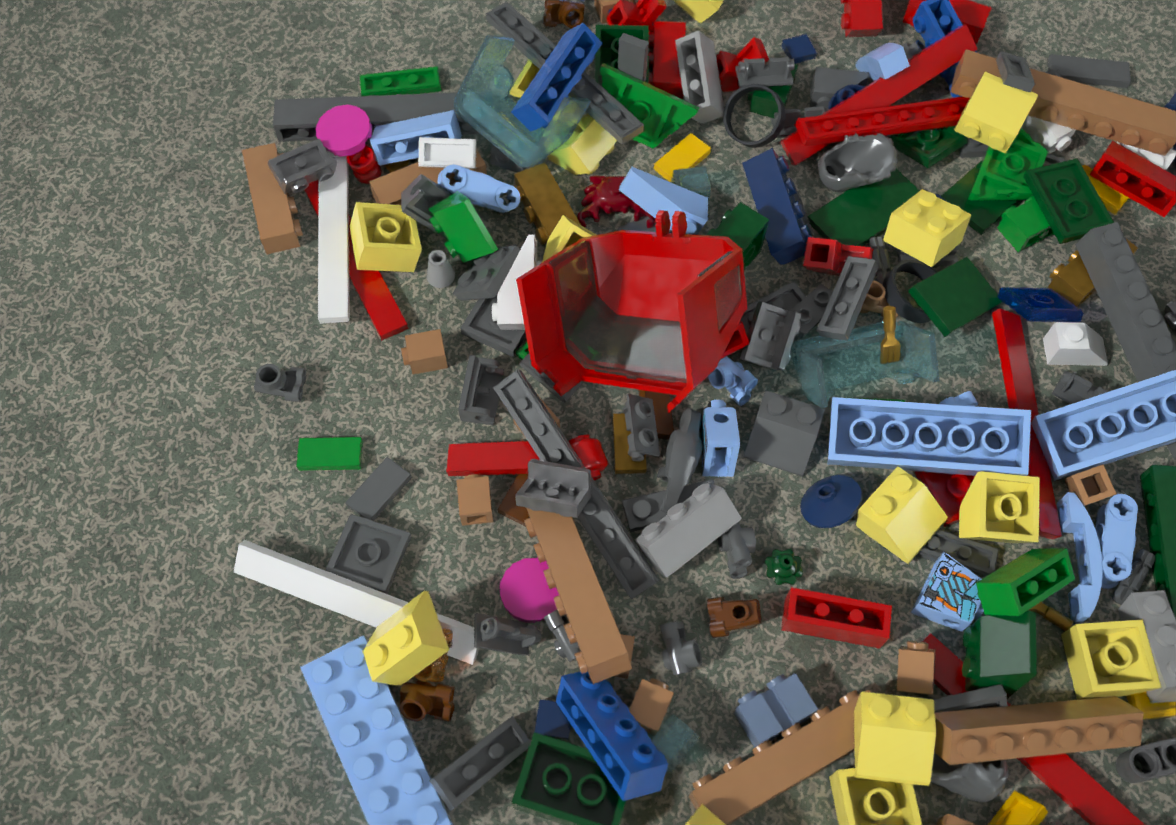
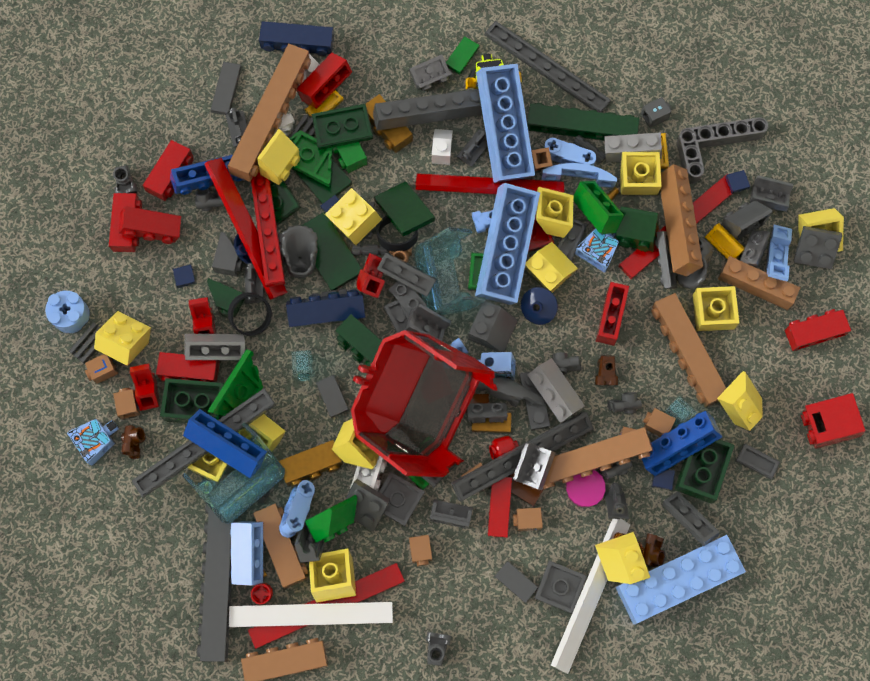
camera: 85 degrees left, 10 degrees up
(302, 166) = (271, 634): flat silver bracket -> none
(329, 453) = (489, 614): green tile -> none
(344, 130) = (238, 605): dark pink tile -> none
(401, 82) = (183, 568): green tile -> none
(439, 270) = (357, 545): light grey cone -> none
(447, 151) = (268, 528): white tile -> none
(508, 307) = (389, 482): white slope -> none
(608, 197) = (303, 414): dark red animal -> none
(633, 56) = (211, 389): dark grey tile -> none
(658, 194) = (321, 379): light blue slope -> none
(684, 155) = (274, 368): yellow tile -> none
(756, 72) = (219, 301): dark grey hinge -> none
(774, 711) = (662, 354): sand blue brick -> none
(784, 567) = (577, 338): dark green plant -> none
(883, 61) = (218, 221): light blue slope -> none
(890, 345) = (437, 254): pearl gold piece -> none
(894, 738) = (687, 292): light yellow slope -> none
(916, 668) = (642, 275): medium nougat brick -> none
(1015, 71) = (257, 139): dark grey tile -> none
(1040, 304) = (415, 160): clear blue tile -> none

